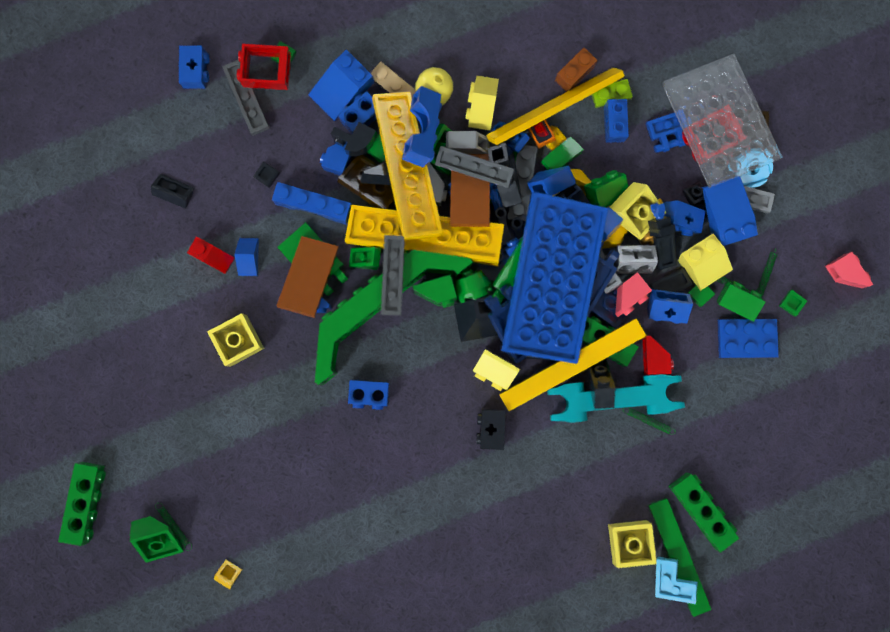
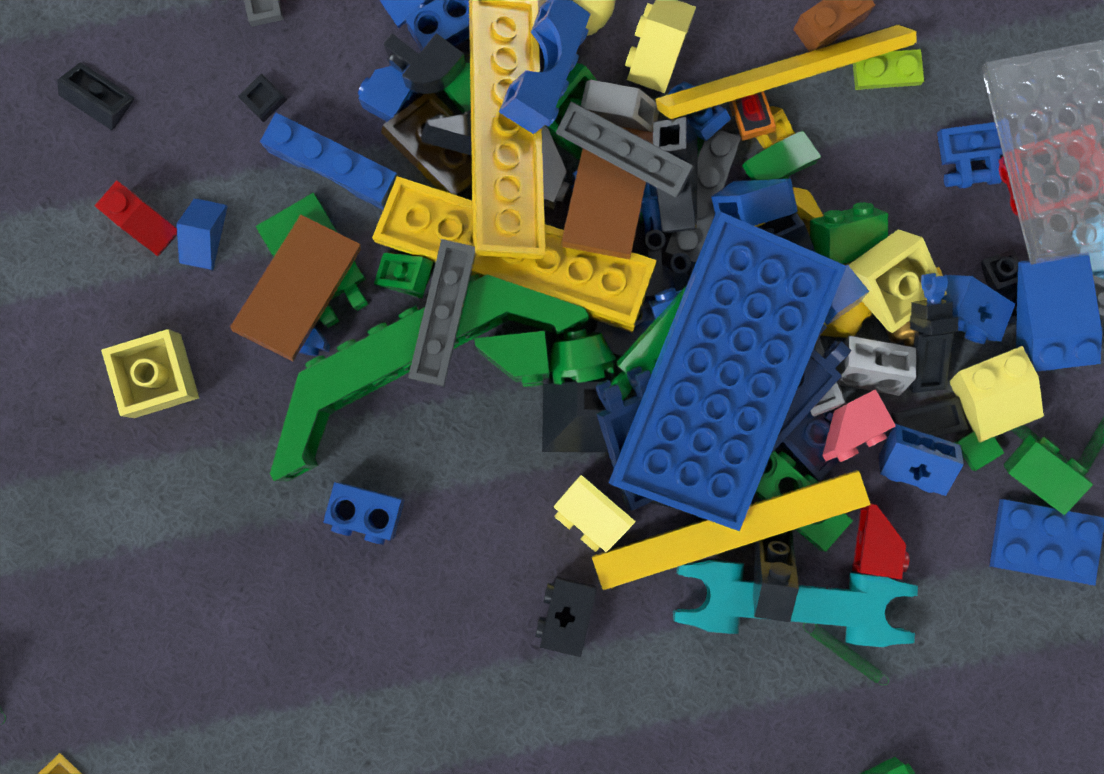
camera: 10 degrees right, 0 degrees up
(616, 120) = (887, 117): blue brick -> none

